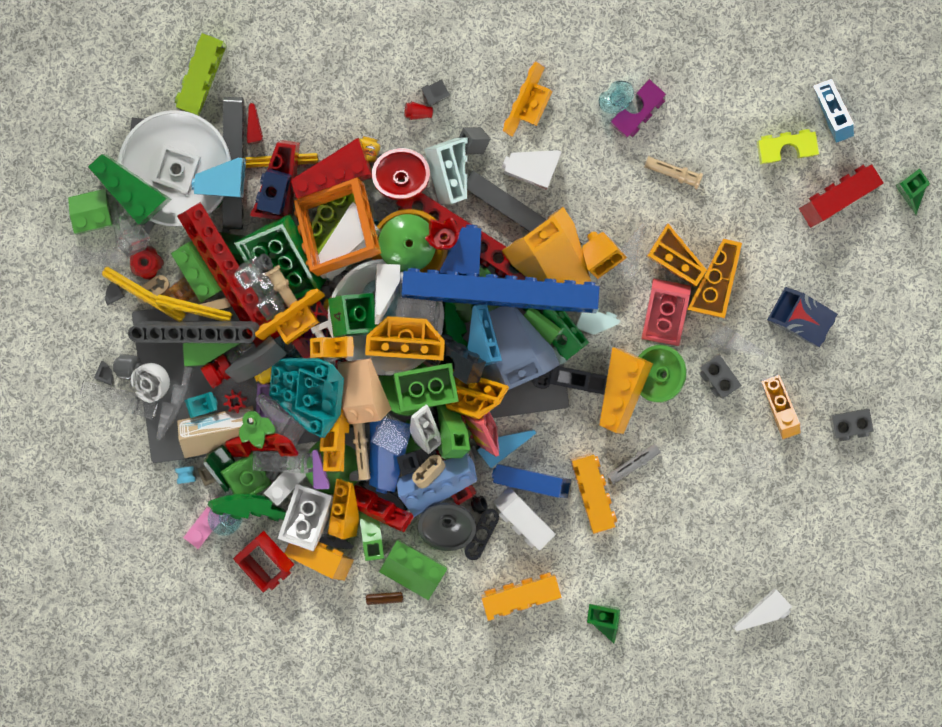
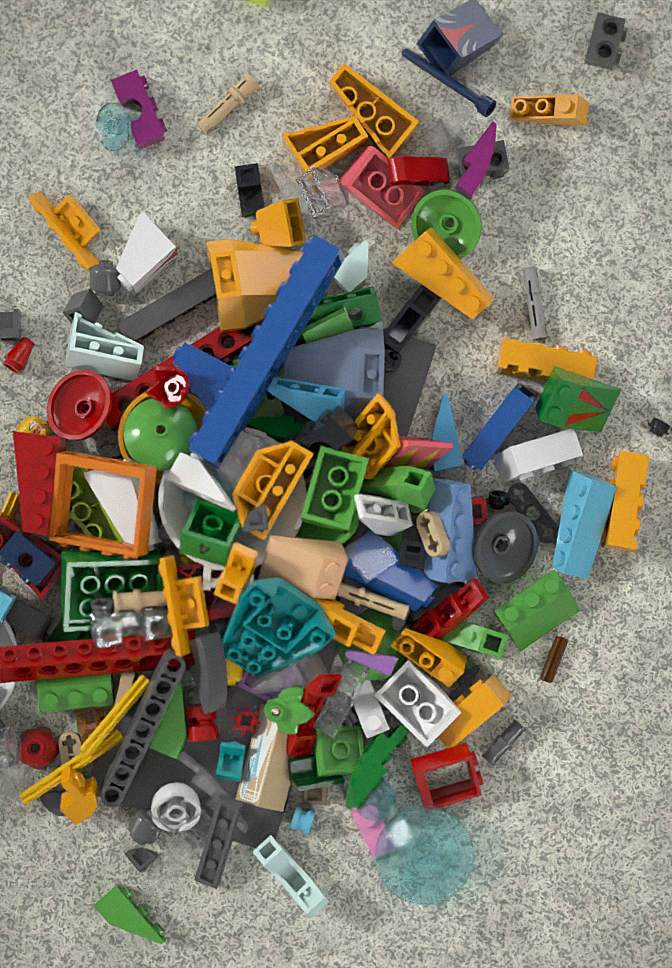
camera: 65 degrees left, 5 degrees down
(59, 381) = (123, 913): none -> bright green slope
(125, 310) = (80, 796): none -> light orange brick
(141, 423) = (219, 841): none -> dark grey tile
(143, 486) = (291, 876): none -> light aqua arch
(185, 576) = (427, 877): none -> clear light blue dish
(308, 590) = (504, 742): none -> dark grey pin
(376, 343) = (256, 519): none -> dark grey tile
(490, 572) = (582, 523): none -> medium azure wedge
(502, 145) = (104, 278): none -> dark grey head
(574, 527) = (576, 401): none -> green slope
(586, 595) = (658, 427): none -> black plate
(618, 218) = (249, 189): none -> black slope
(638, 273) = (322, 192): none -> clear torso
(689, 334) = (418, 170): none -> red beam
(715, 375) = (477, 162): none -> magenta slope
(759, 359) = (484, 104): none -> dark blue piece

